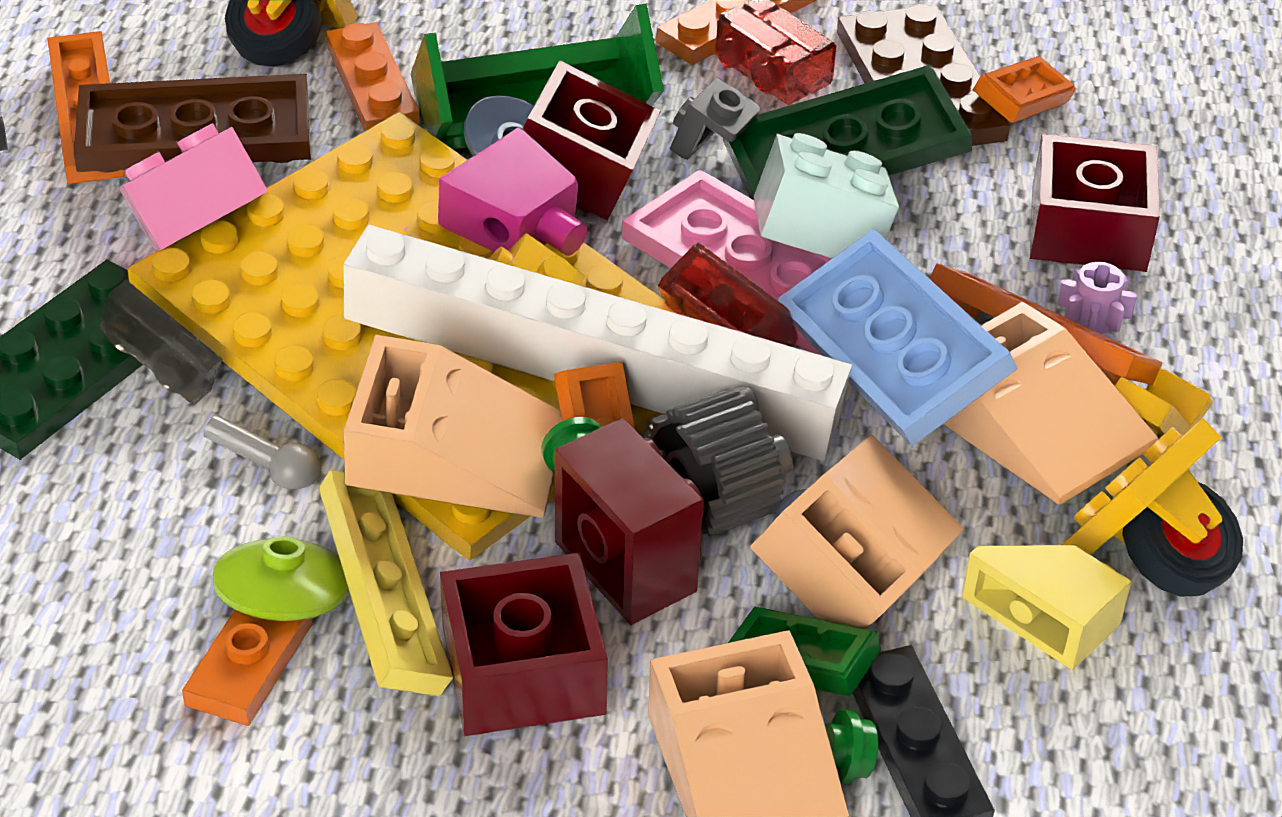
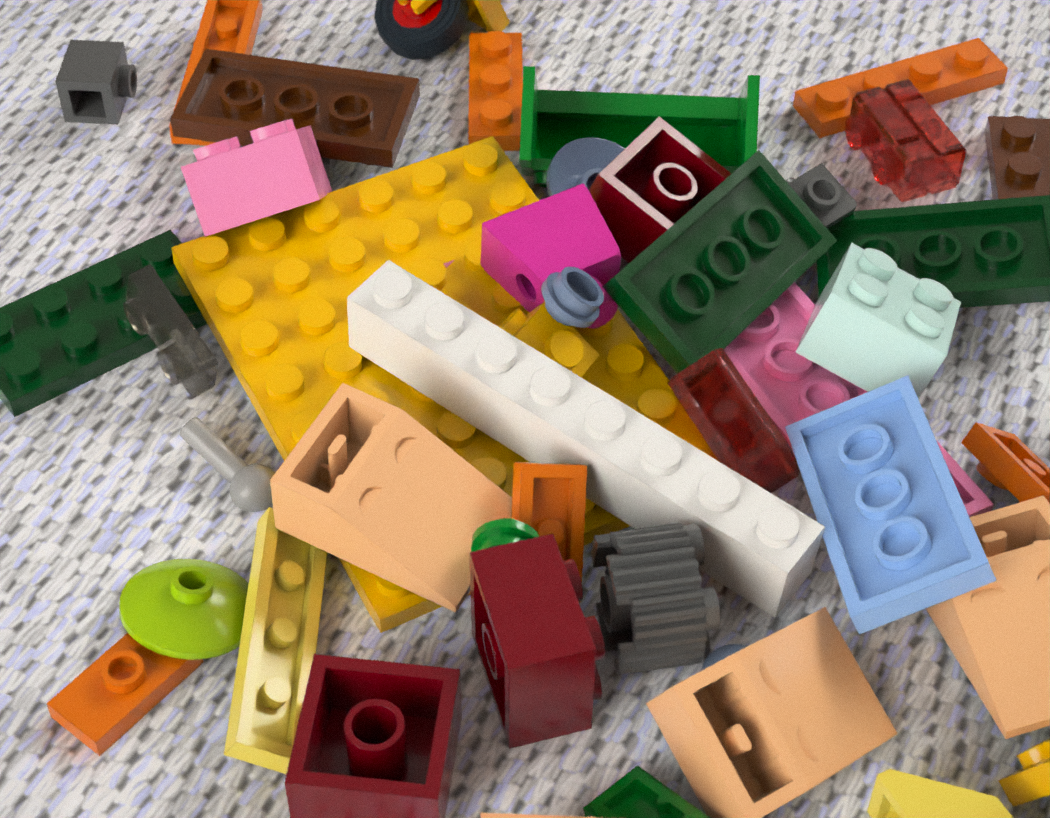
camera: 20 degrees right, 5 degrees up
(551, 224) = (572, 297): none -> sand blue plate
(664, 176) = (720, 264): none -> dark green plate

